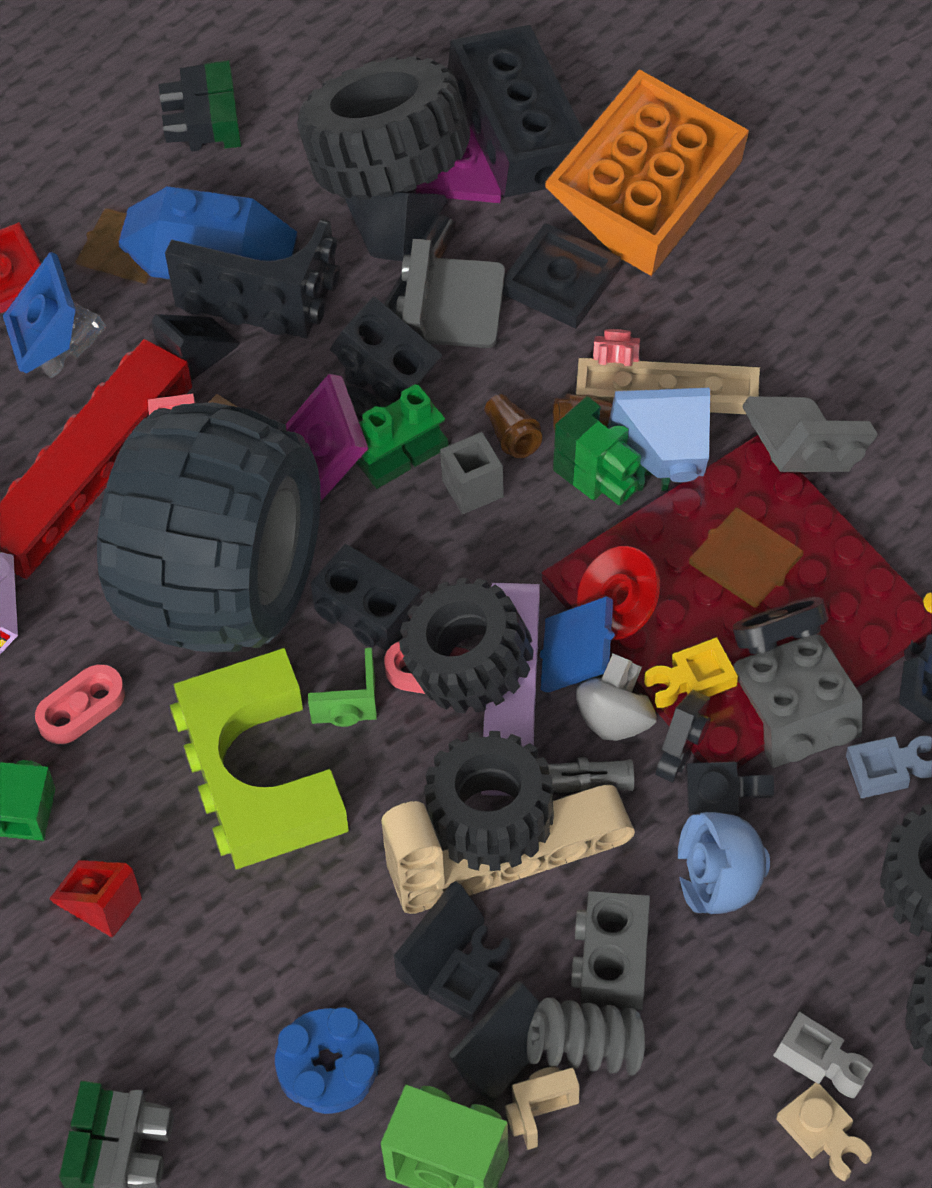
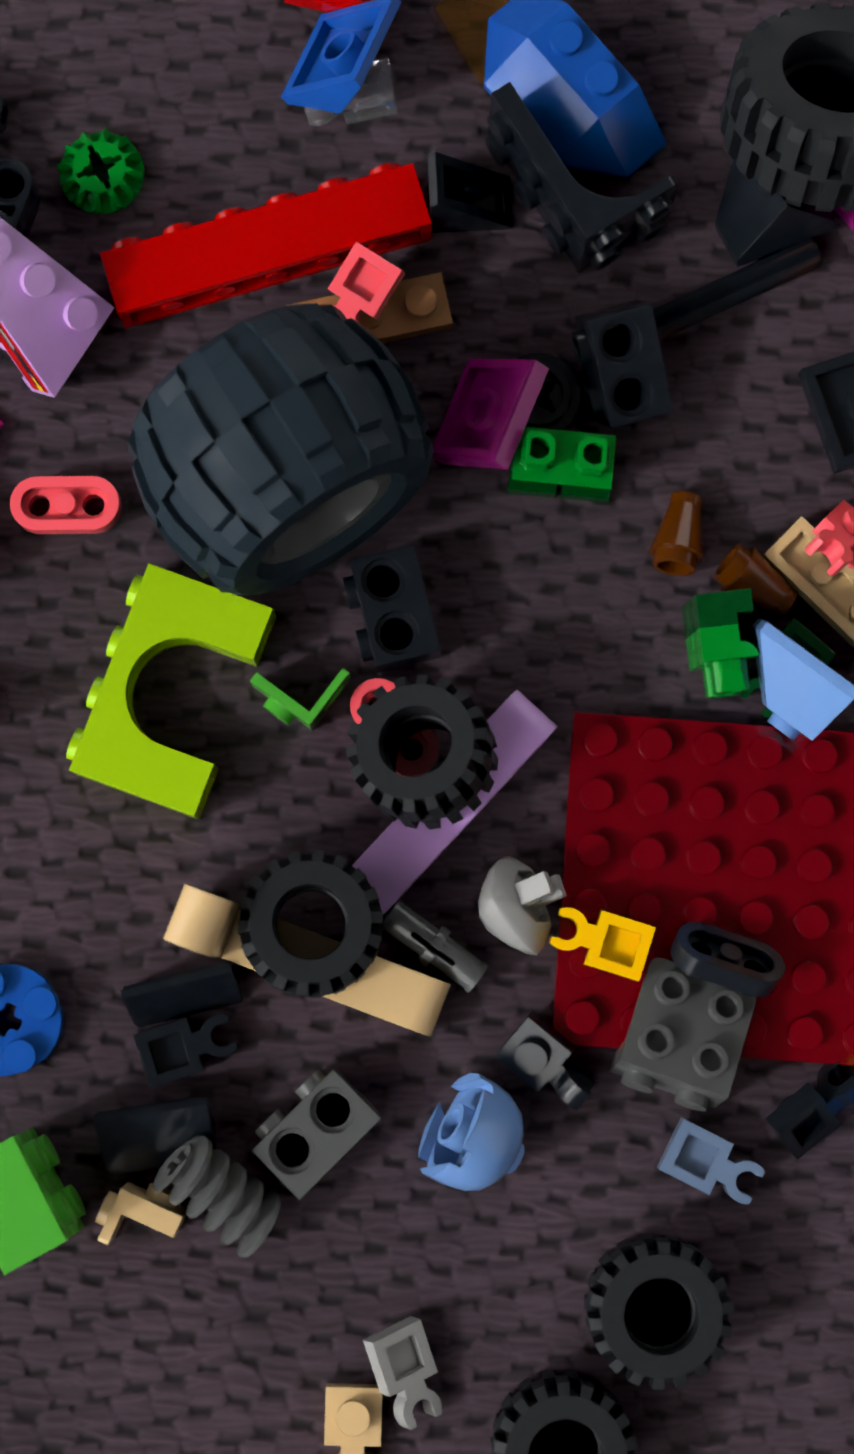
camera: 35 degrees right, 25 degrees up
(451, 298) = (738, 350): dark grey bracket -> none
(472, 473) = (593, 562): dark grey brick -> none
(576, 644) = (534, 819): blue piece -> none
(615, 575) = (595, 795): red dish -> none
(687, 727) = (551, 992): black plate -> none
(746, 557) = (764, 859): clear orange piece -> none

